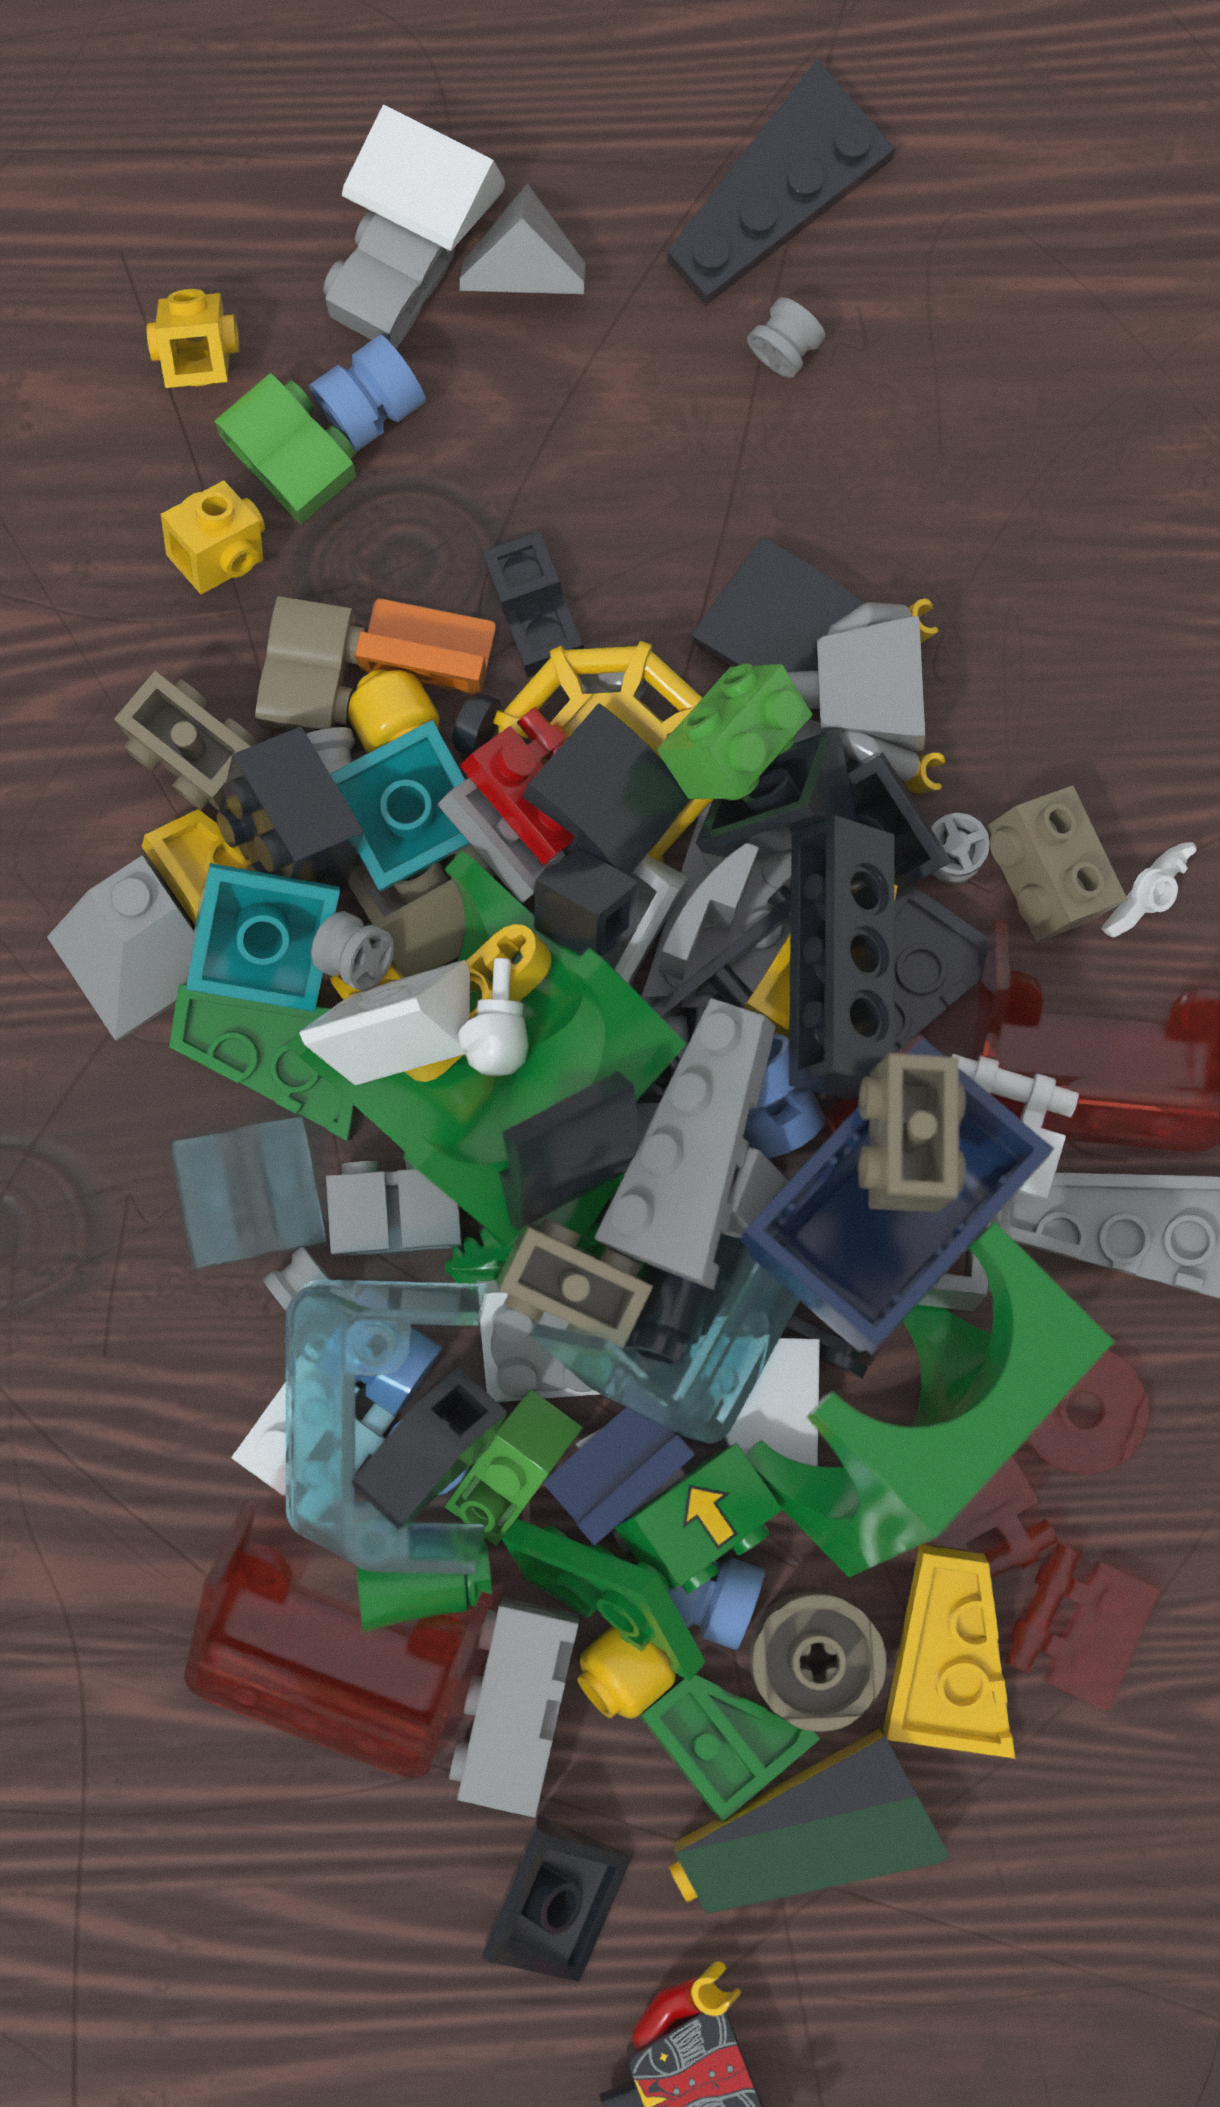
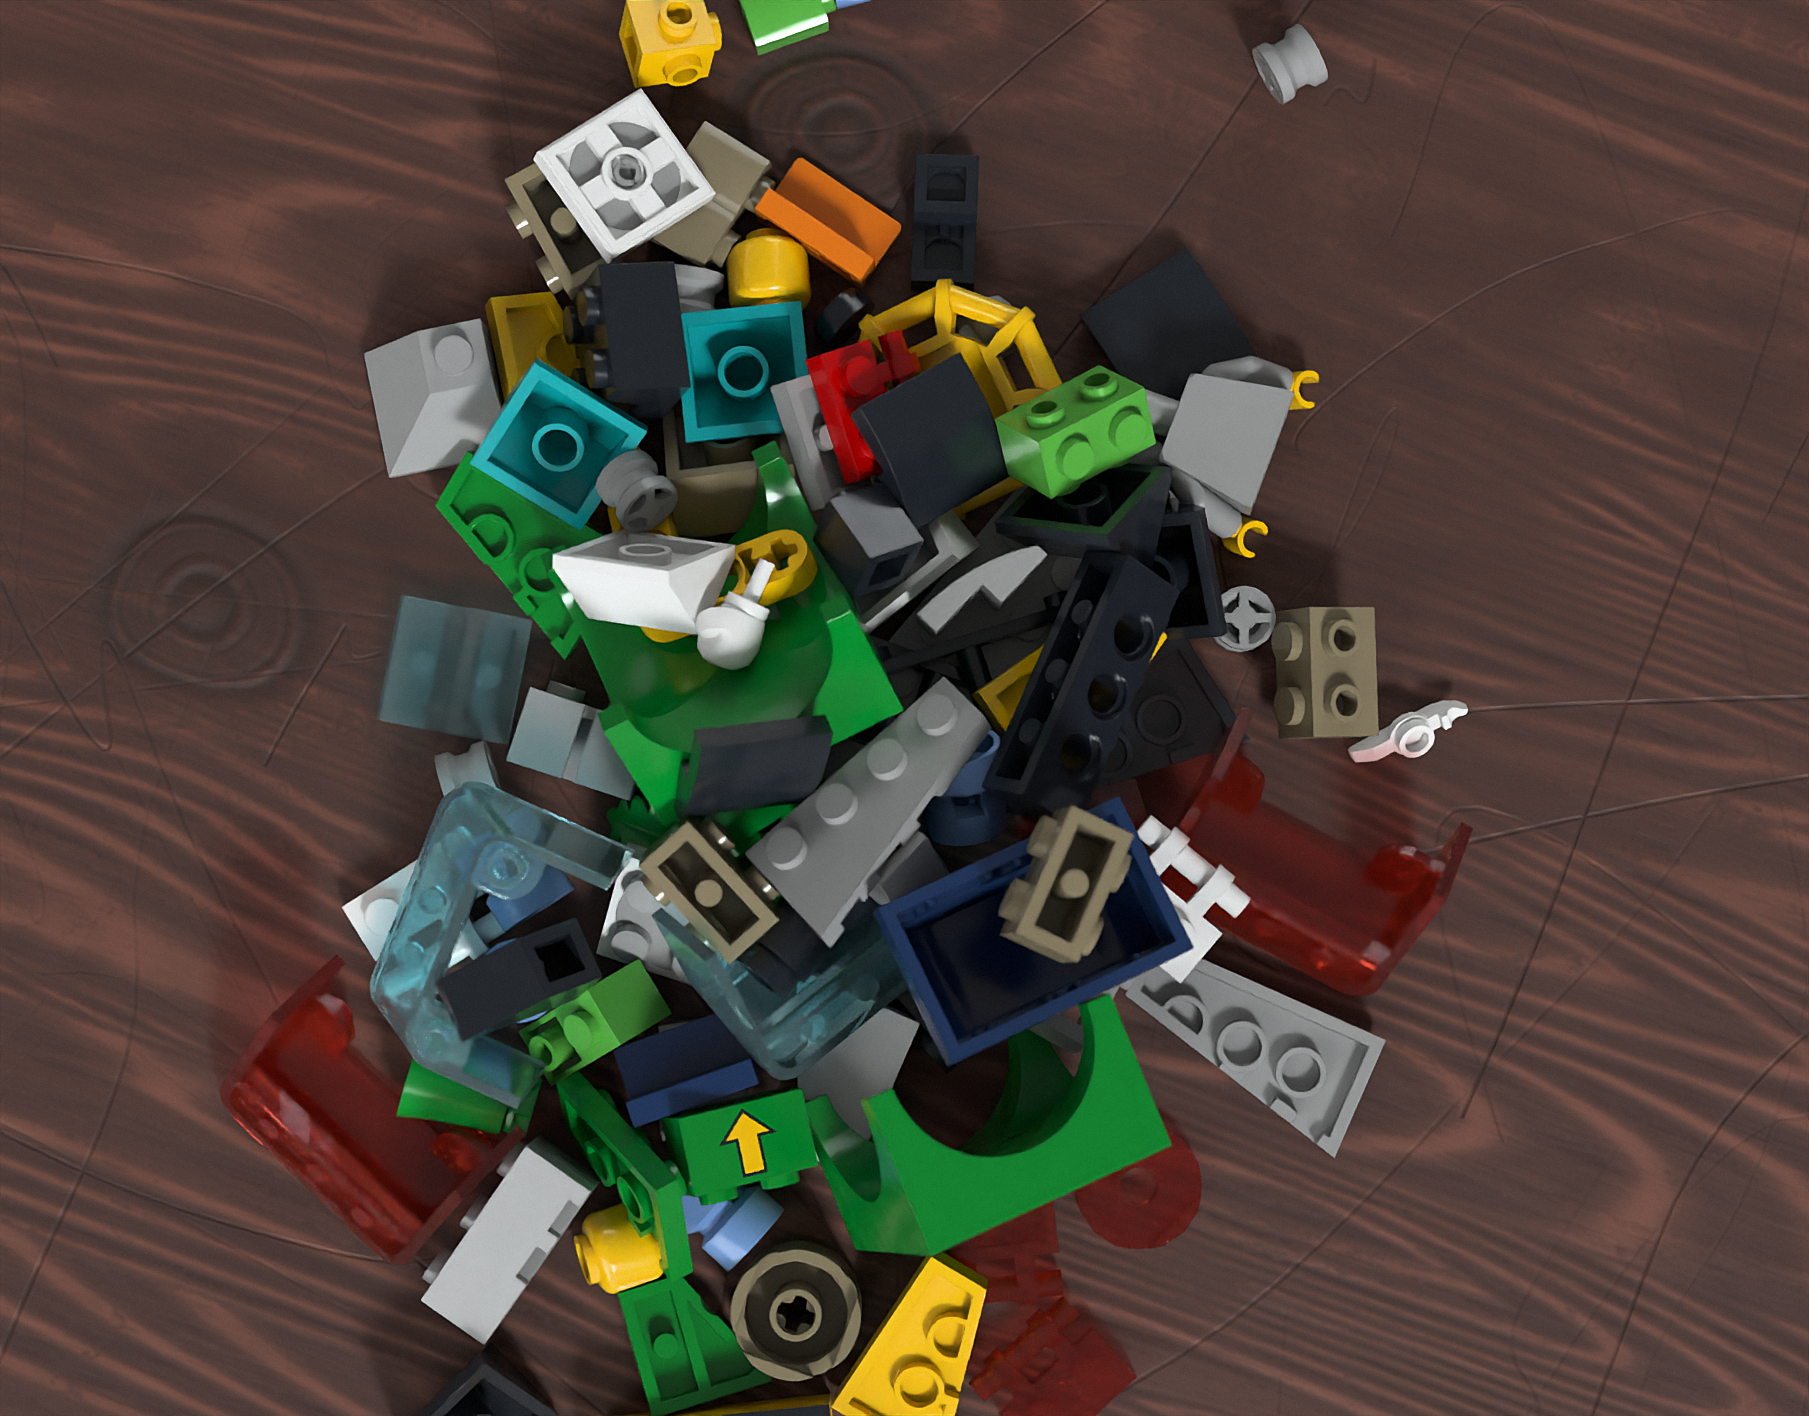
camera: 20 degrees right, 5 degrees up
(223, 670) = (624, 176): none -> white piece

